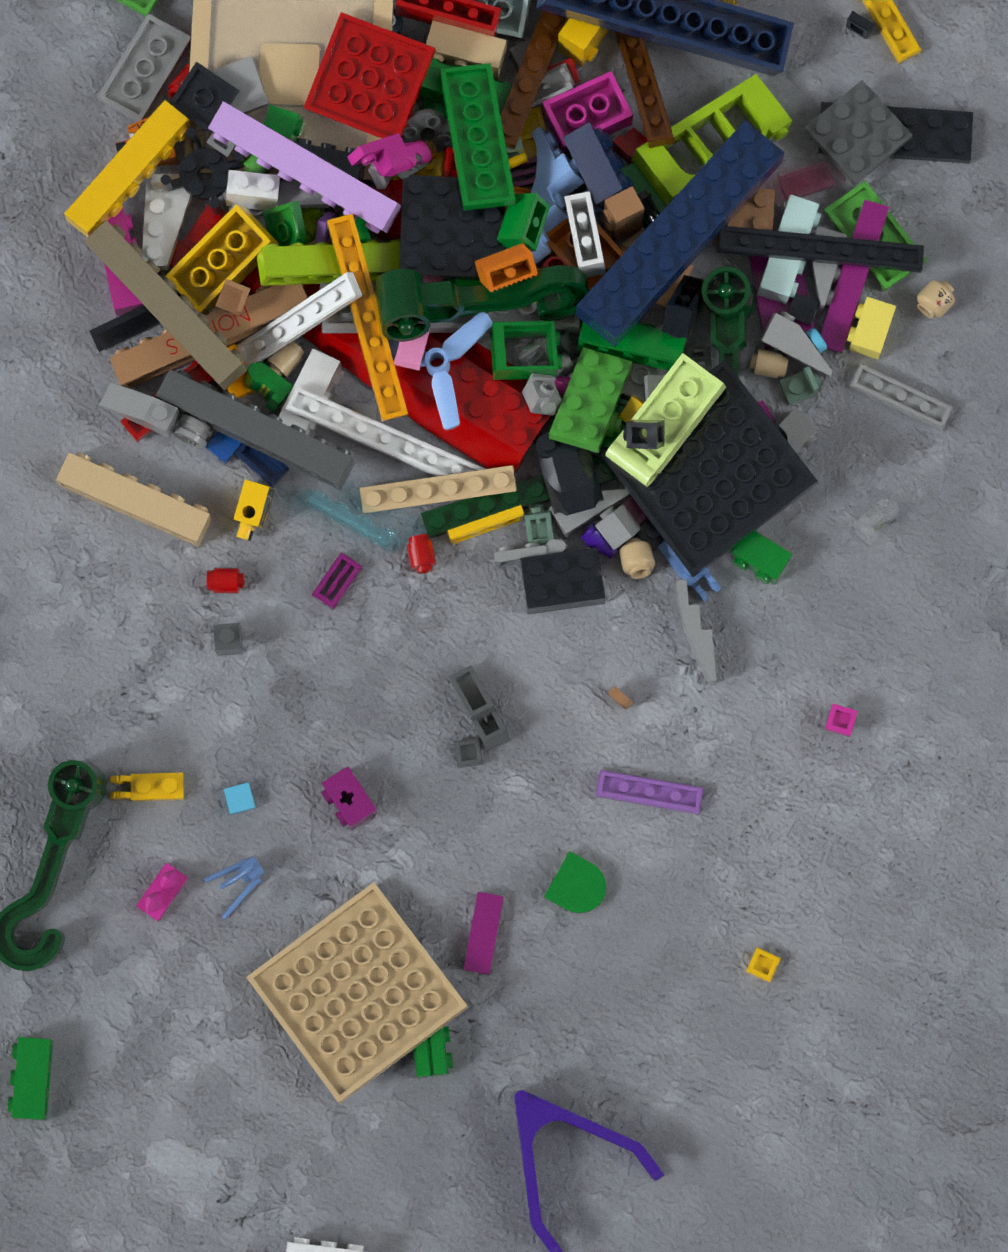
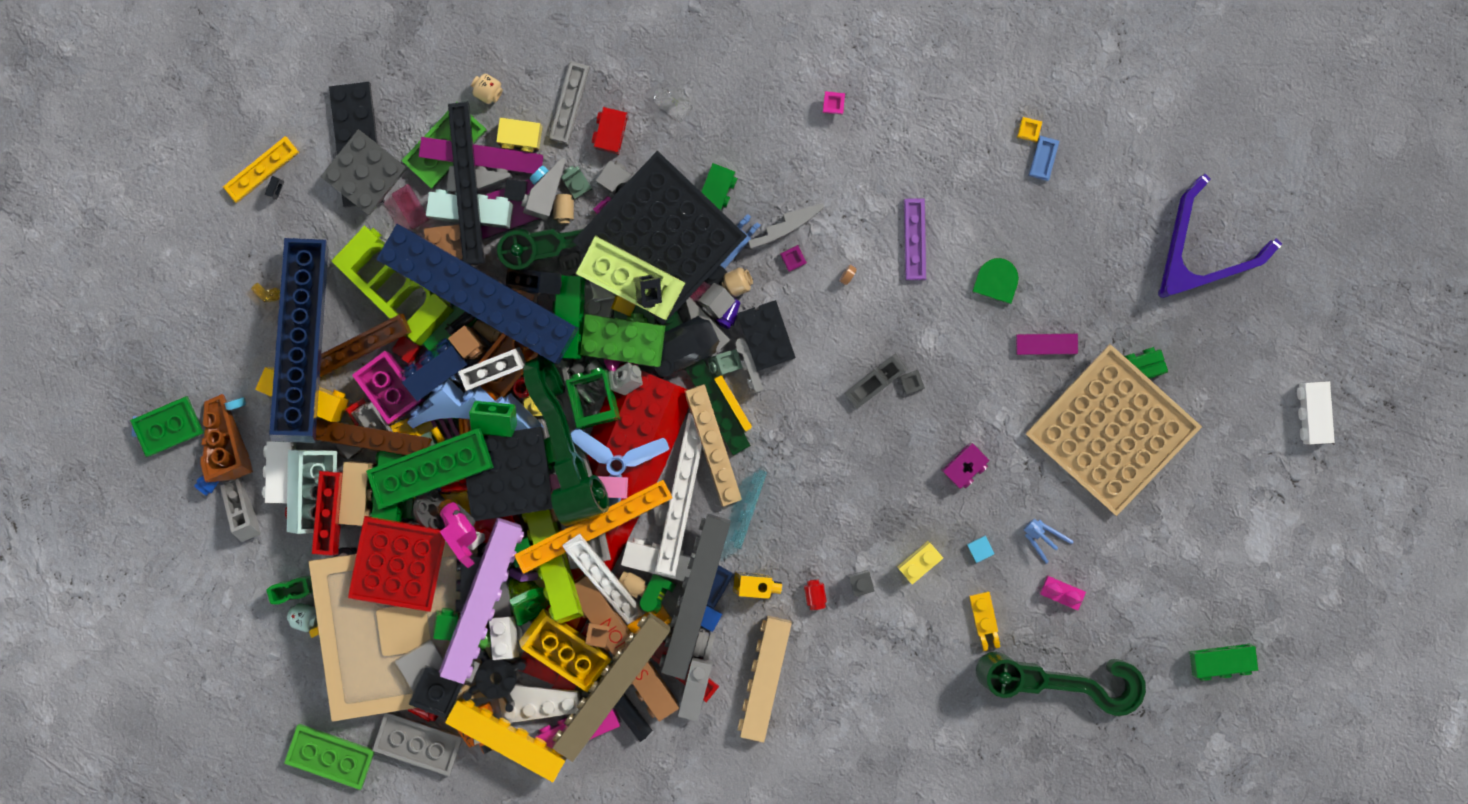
camera: 105 degrees left, 10 degrees up
(238, 717) = (920, 562): none -> light yellow brick
(325, 599) = (813, 515): magenta tile -> none
(421, 553) = (765, 448): red brick -> none
(506, 267) = (535, 424): orange brick -> none
(654, 635) = (793, 258): none -> magenta tile
(722, 976) = (1044, 158): none -> medium blue tile
(856, 438) = (610, 130): none -> red brick

